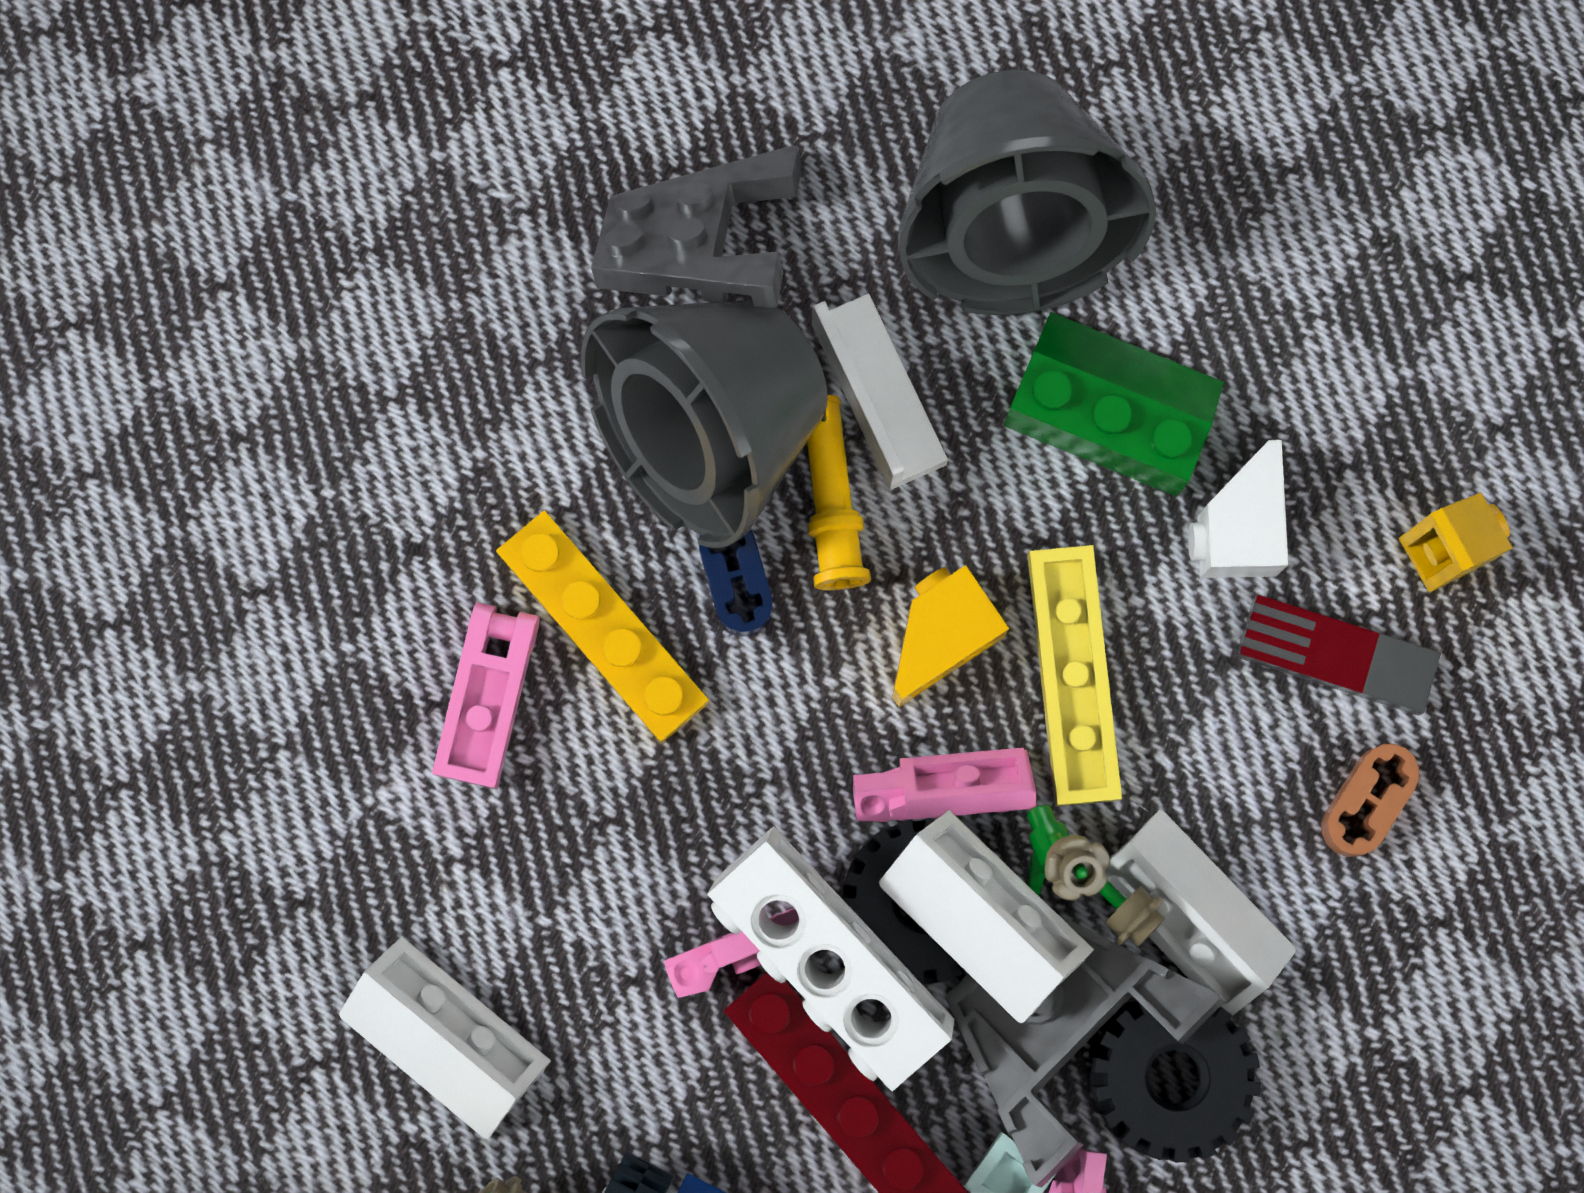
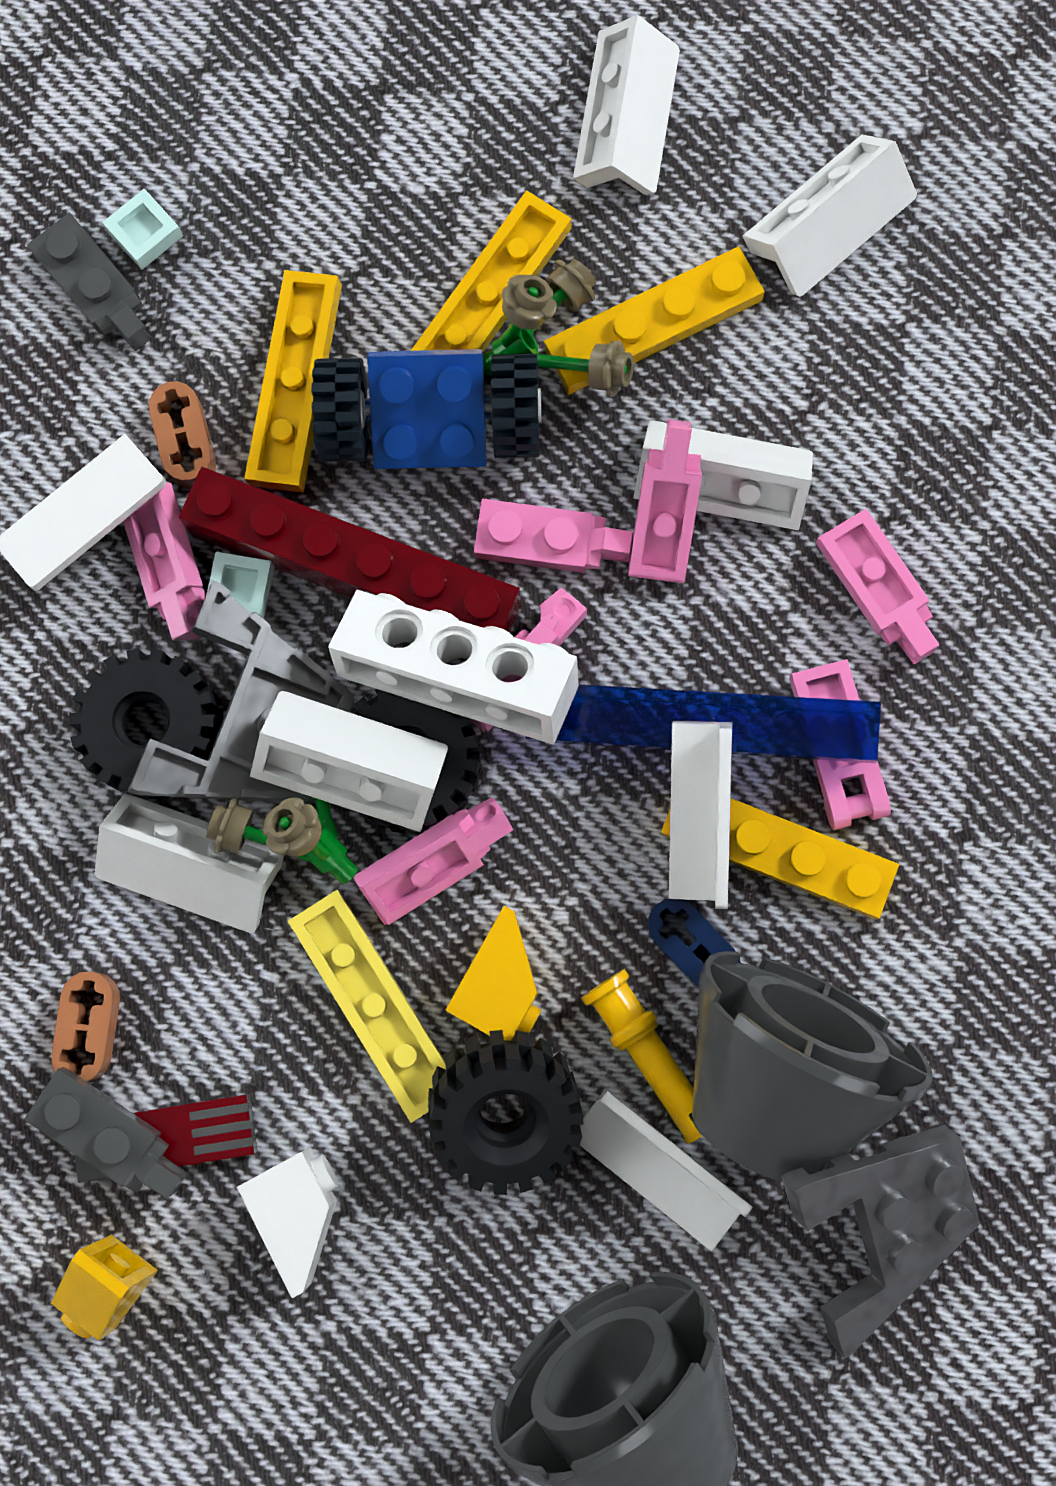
camera: 160 degrees right, 0 degrees up
(353, 836) = (880, 584): none -> bright pink hinge
(525, 1022) = (666, 508): none -> bright pink hinge
(590, 769) = (759, 722): none -> clear blue plate
(660, 693) = (700, 811): none -> white panel
(662, 1066) = (547, 537): none -> bright pink hinge
(1007, 472) = (511, 1149): none -> black tyre
(1115, 404) = (451, 1264): green slope -> none
(1394, 681) = (104, 1134): none -> dark grey hinge

